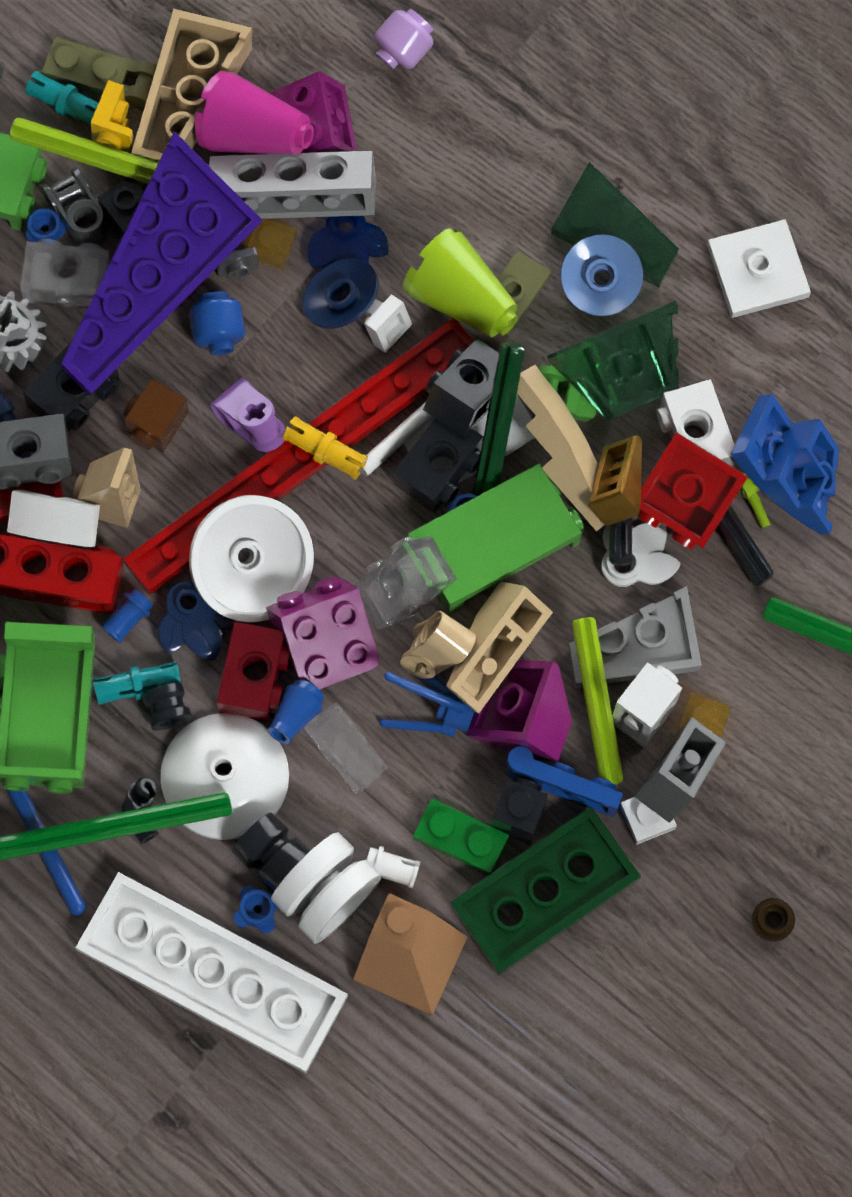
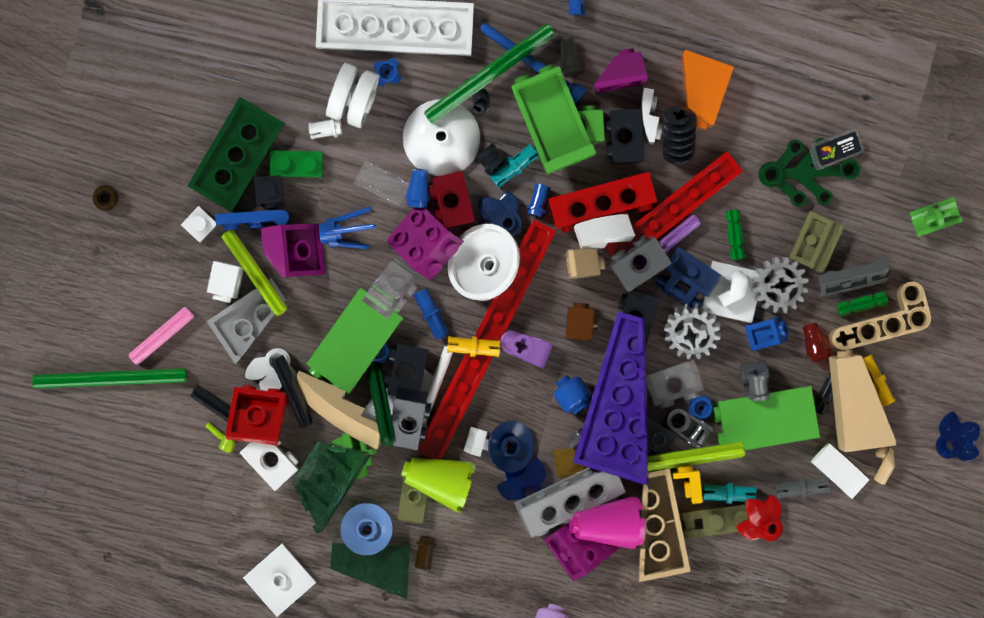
camera: 160 degrees right, 15 degrees up
(38, 42) = (760, 517): none -> red plate
(269, 850) = (392, 104): black wheel -> none
(364, 528) = (431, 314): none -> blue axle
(409, 955) = (292, 85): medium nougat slope -> none
(437, 646) = (355, 260): tan piece -> none
(503, 633) = (325, 278): tan slope -> none
(528, 217) = (425, 552): none -> dark brown pin
(618, 485) = (299, 388): pearl gold slope -> none
(680, 770) = (190, 252): dark grey brick -> none
(707, 712) = (192, 292): clear yellow plate -> none
(778, 680) = (161, 335): none -> bright pink axle
(789, 461) = (210, 466): blue slope -> none

